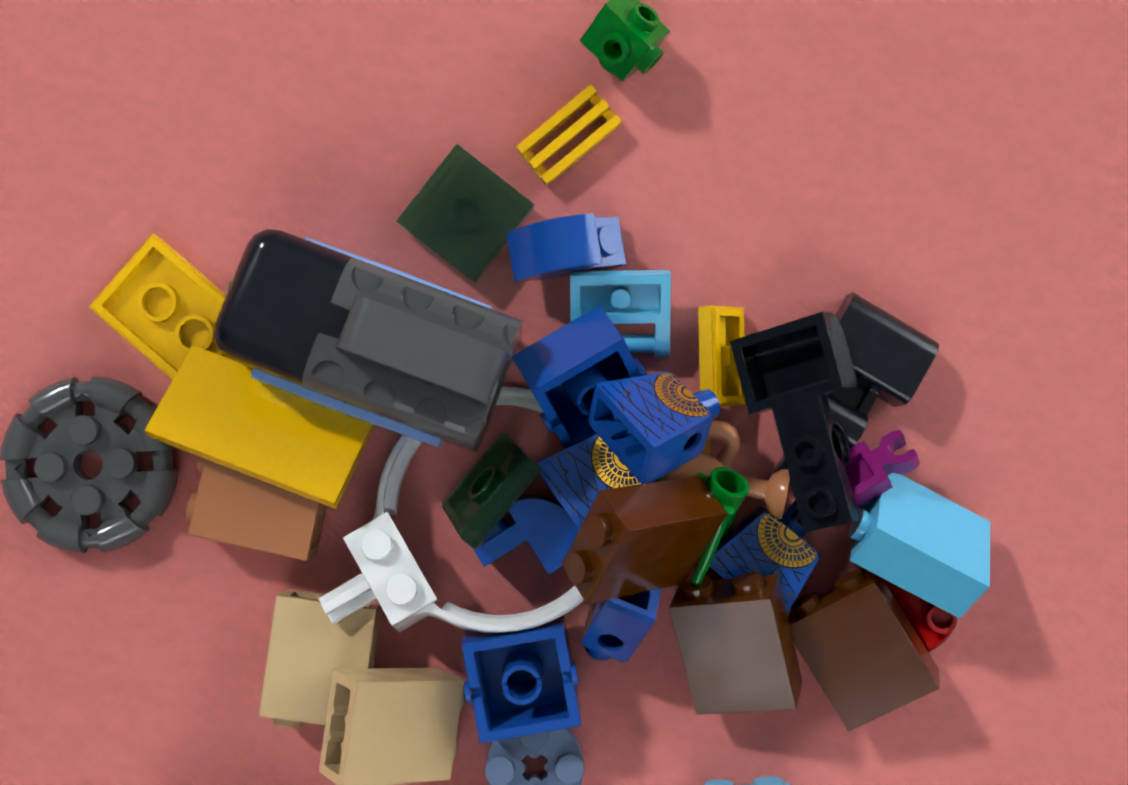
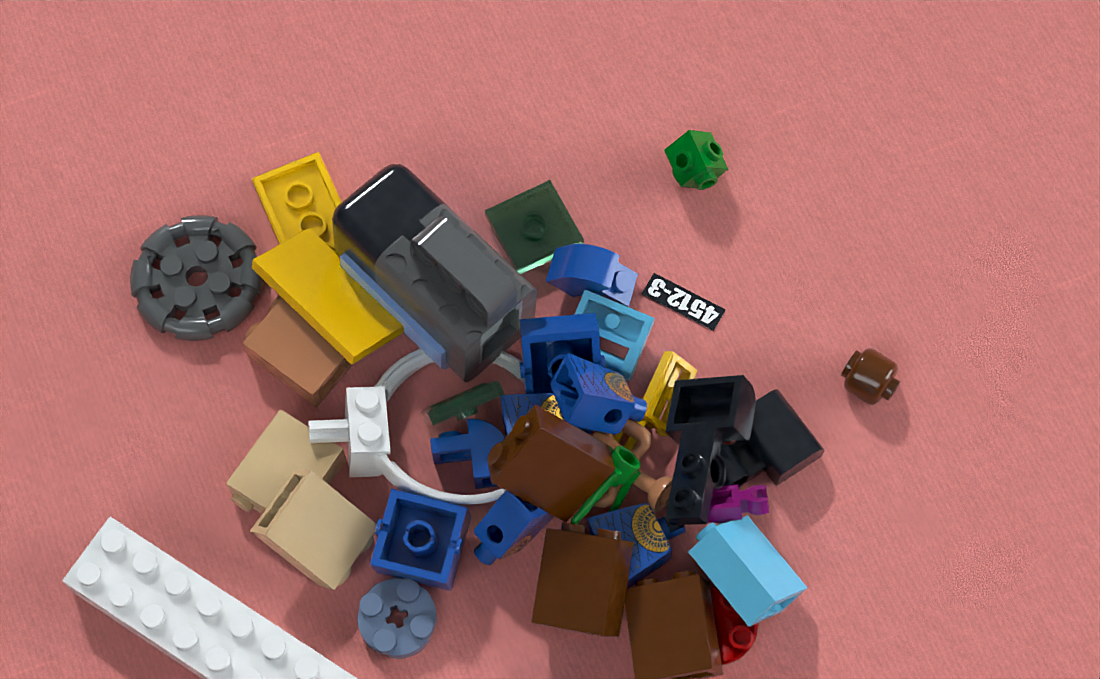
camera: 25 degrees right, 20 degrees down
(600, 108) = (627, 196): yellow tile -> none
(686, 224) = (683, 301): none -> black sticker
(953, 223) = (870, 376): none -> reddish brown head

